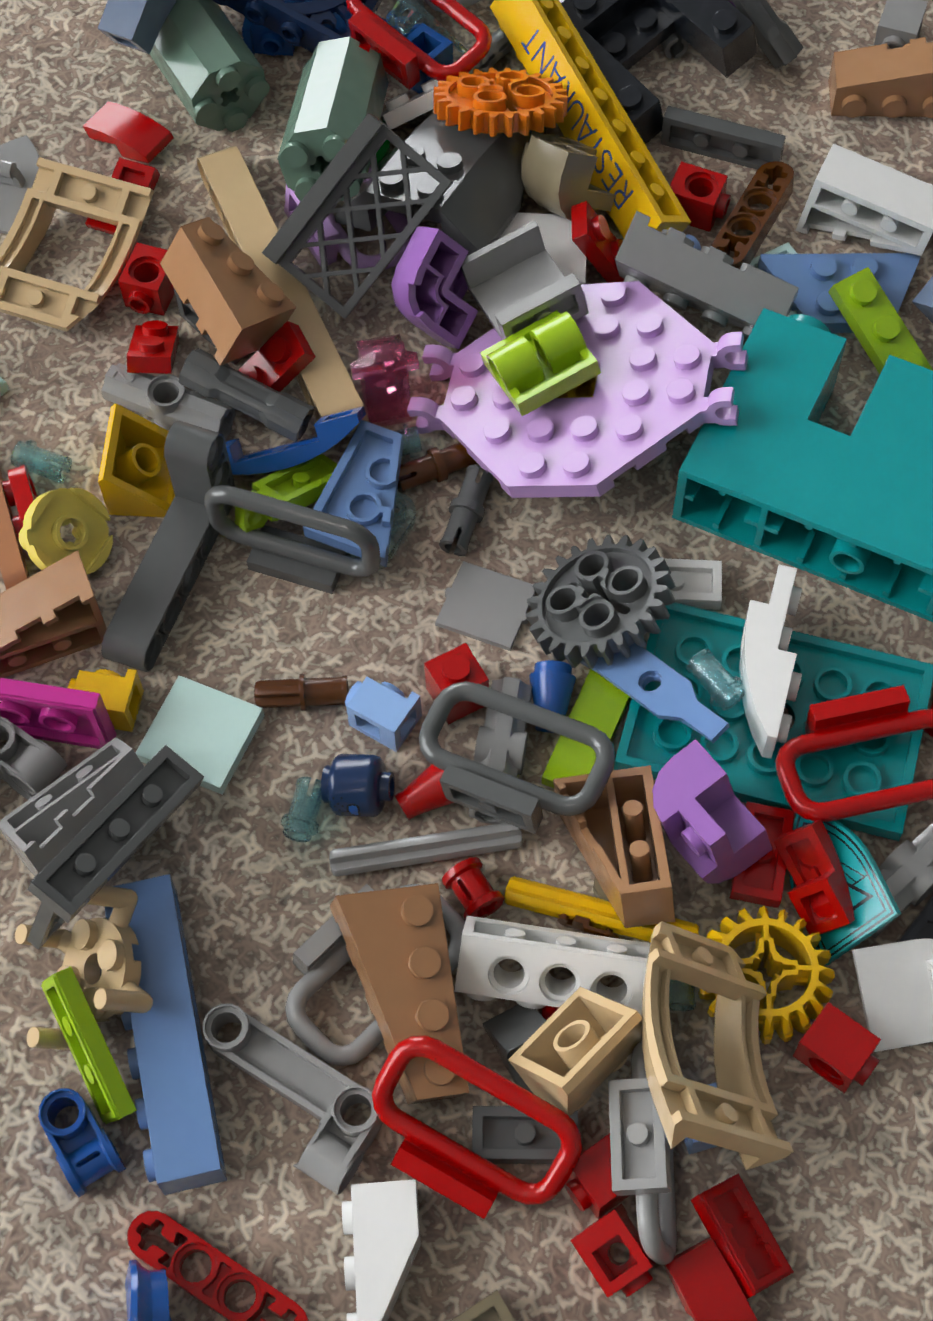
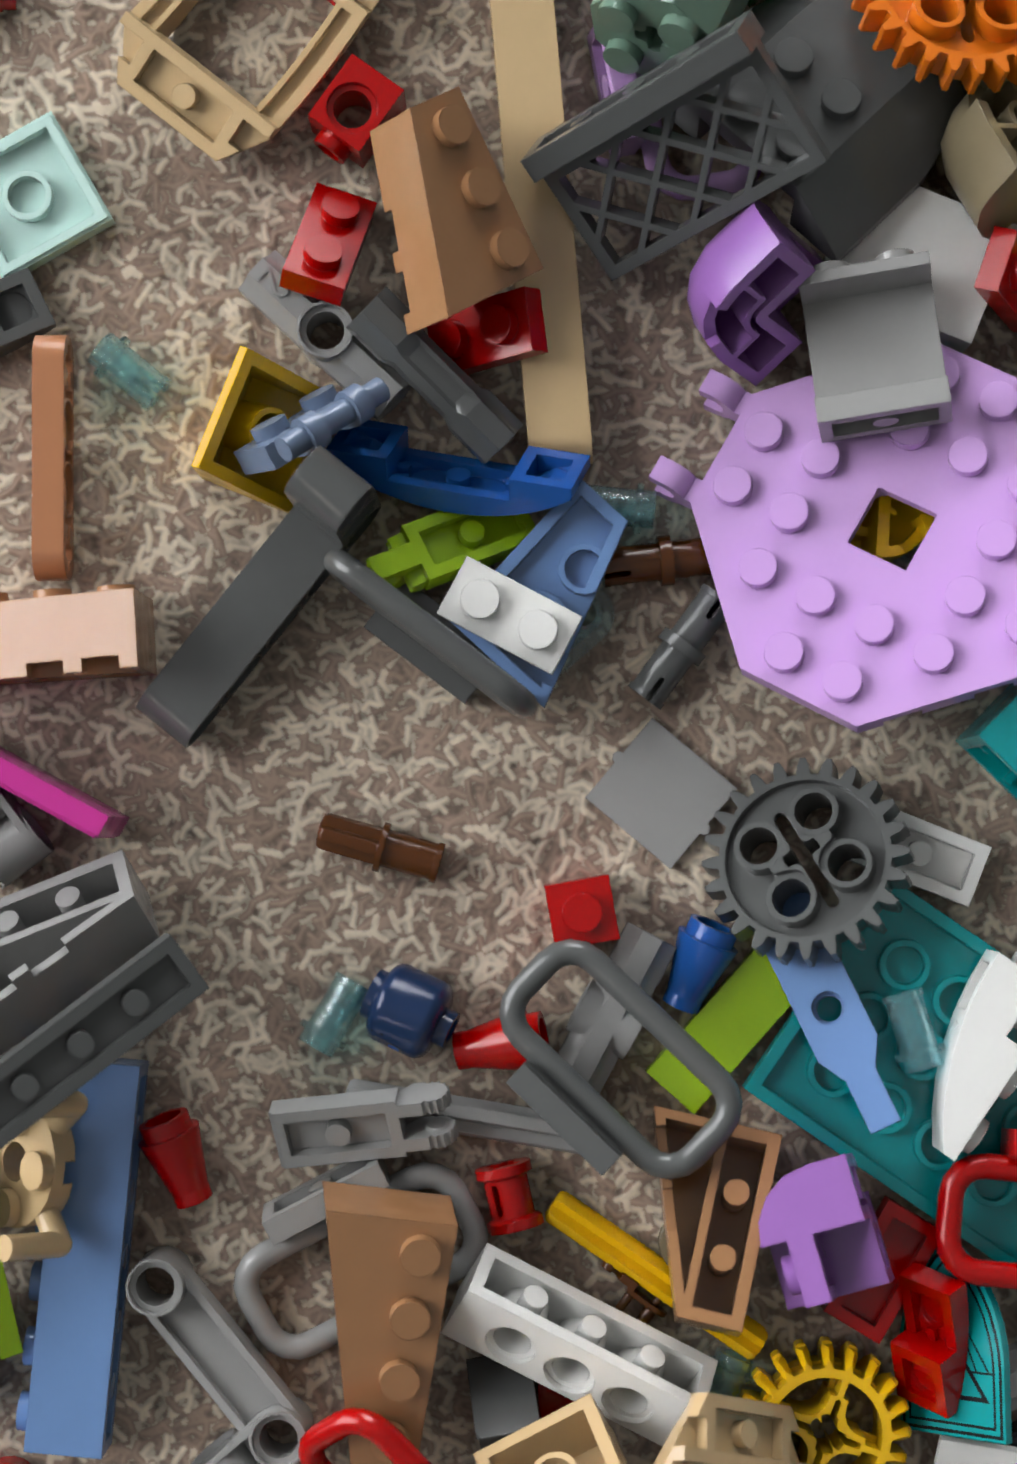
camera: 20 degrees right, 25 degrees up
(20, 493) = (92, 419): red plate -> none
(60, 507) = (111, 491): light yellow plate -> none
(119, 694) = (123, 774): yellow brick -> none
(150, 449) = (323, 414): none -> sand blue plate
(204, 730) = (234, 859): light aqua tile -> none
(216, 940) = (177, 1155): none -> red cone
(342, 868) = (361, 1125): none -> light grey hinge
(354, 502) = (509, 615): none -> white plate
(382, 712) = (473, 914): light blue brick -> none
(384, 378) = (634, 415): clear pink piece -> none
(541, 361) = (851, 495): lime plate -> none

